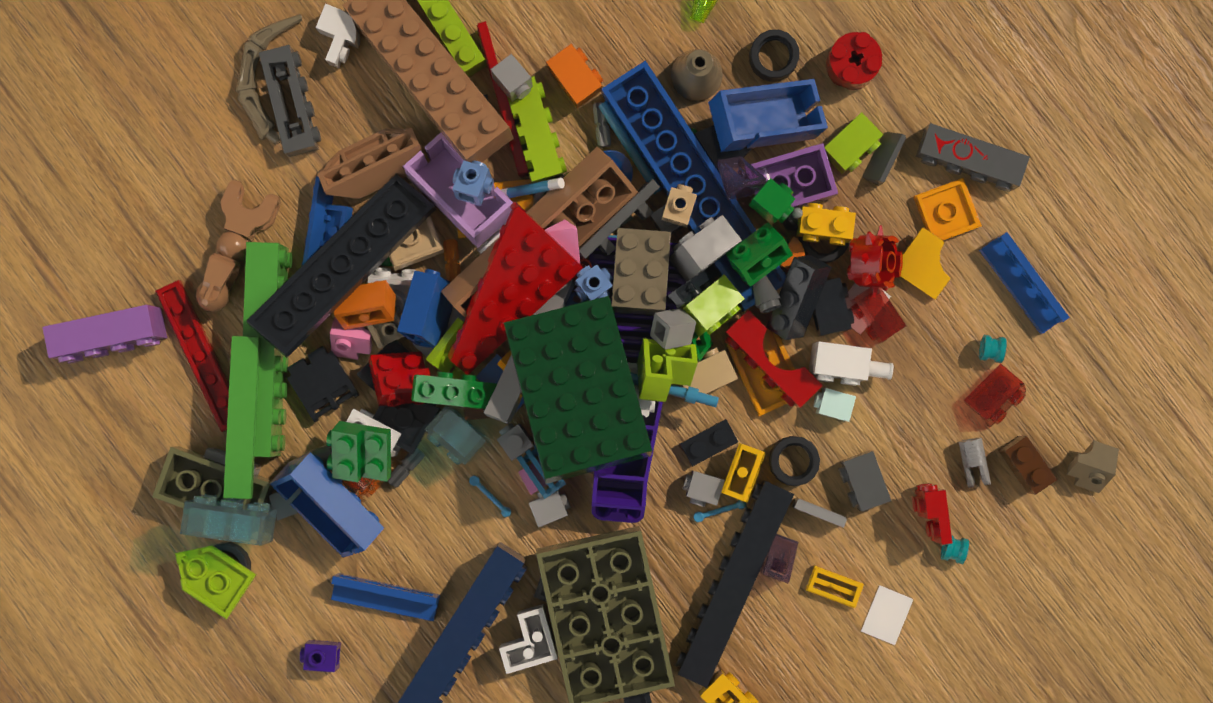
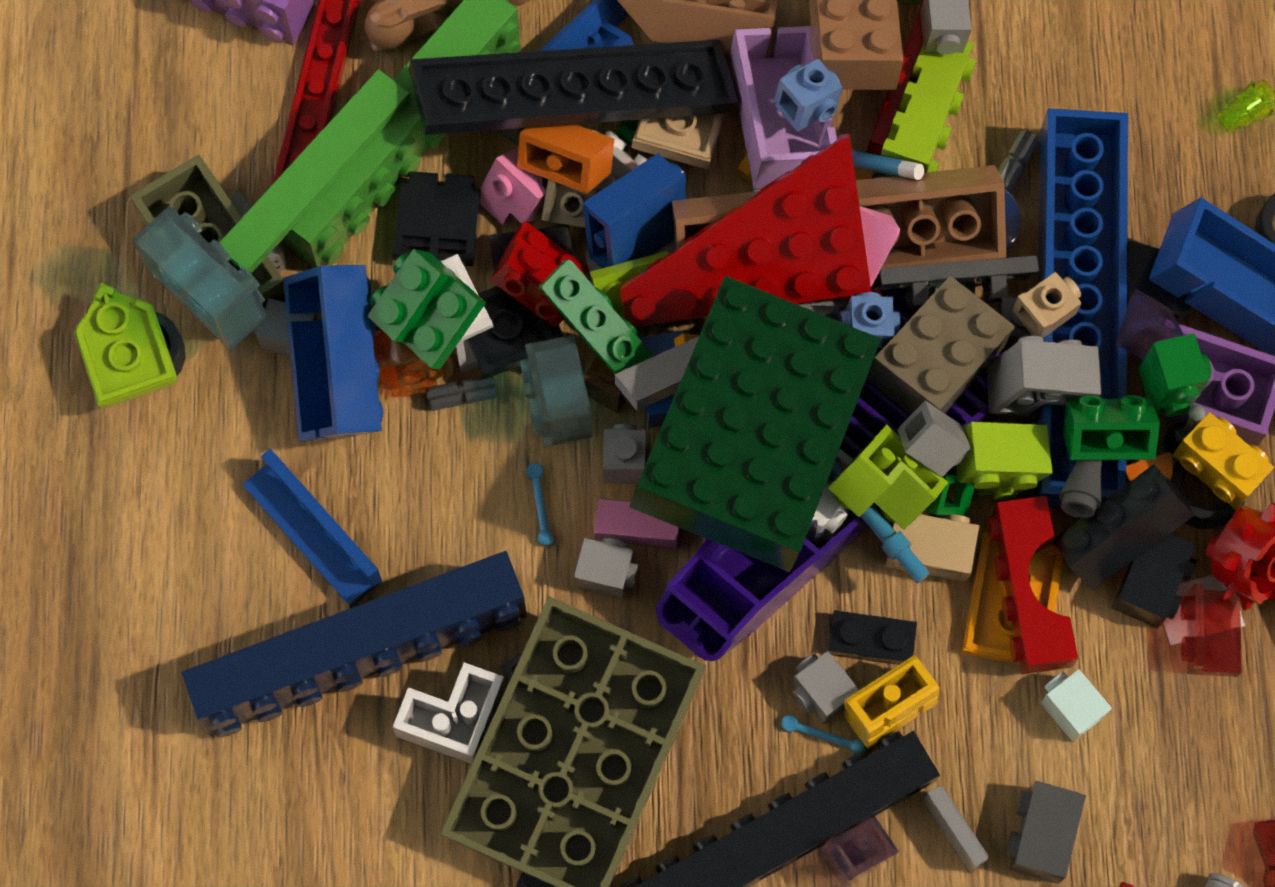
camera: 30 degrees right, 15 degrees down
(320, 656) = (175, 542): dark purple brick -> none
(451, 256) = (714, 180): orange piece -> none
(530, 455) = (630, 540): dark azure tile -> none
(574, 75) = (1024, 79): orange brick -> none
(628, 143) = (1032, 201): dark azure bar -> none
(693, 287) = (994, 409): black hinge -> none
(696, 75) = (1180, 175): dark tan cone -> none
(813, 464) = (998, 725): black tyre -> none
(846, 363) = (1128, 656): white brick -> none

